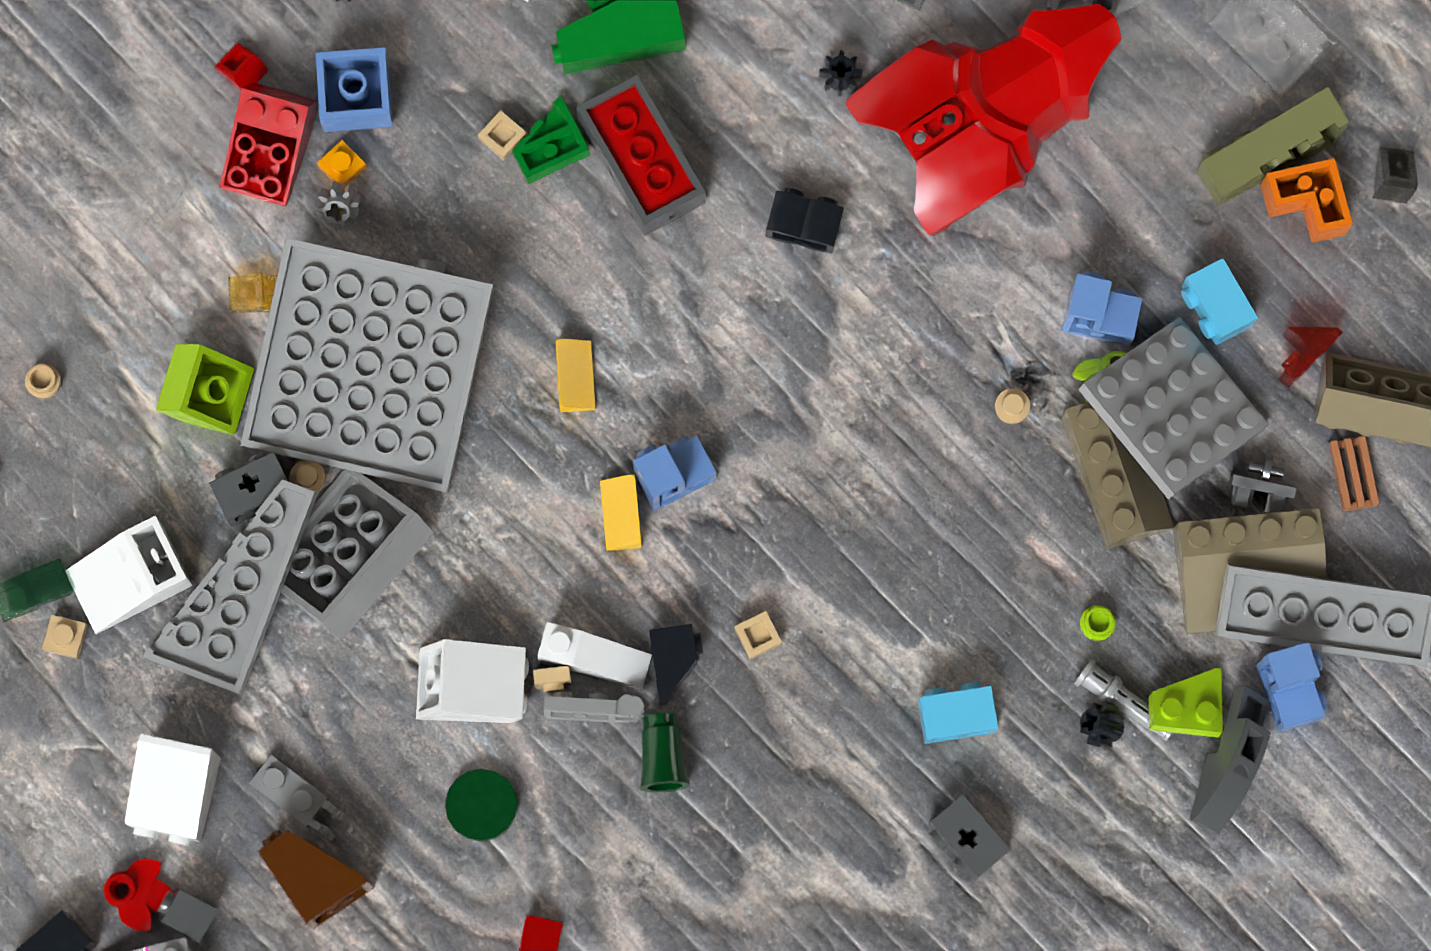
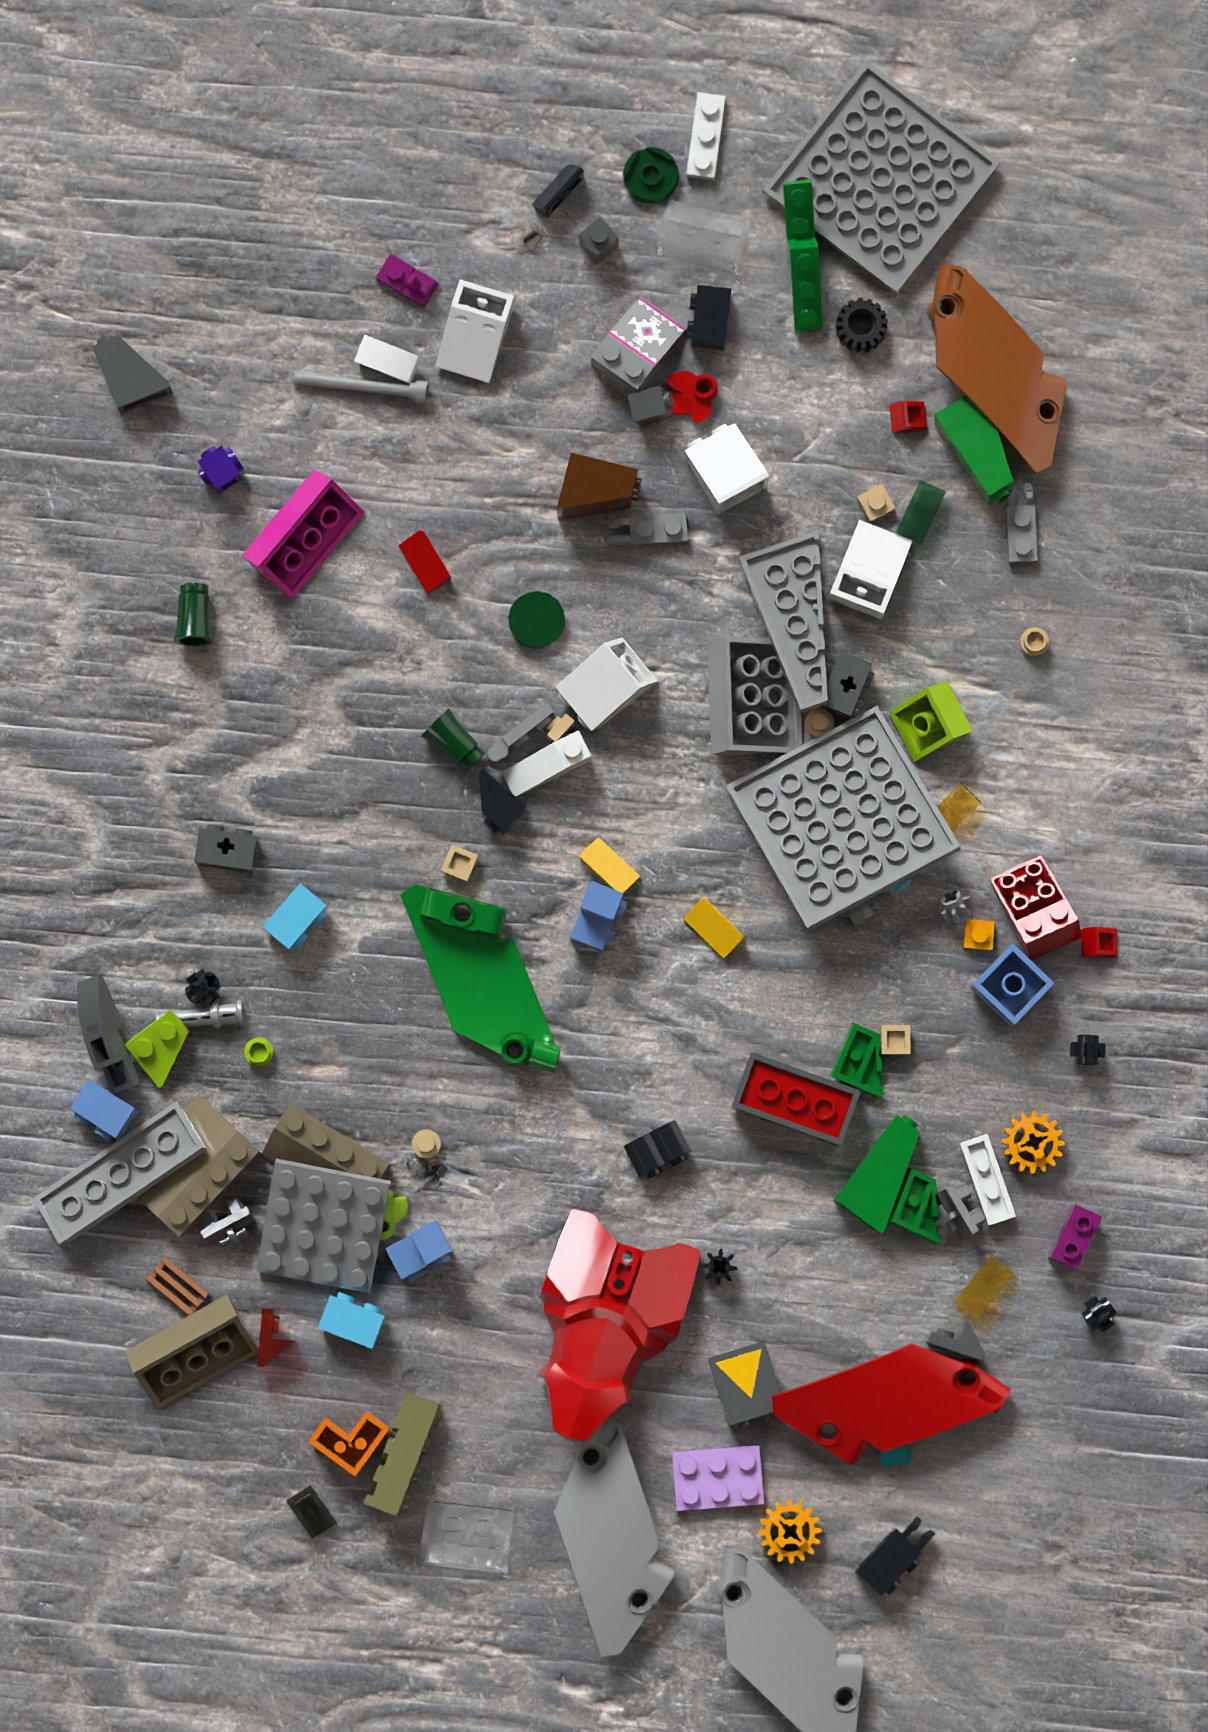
camera: 140 degrees right, 5 degrees up
(829, 513) = (481, 976): none -> green panel

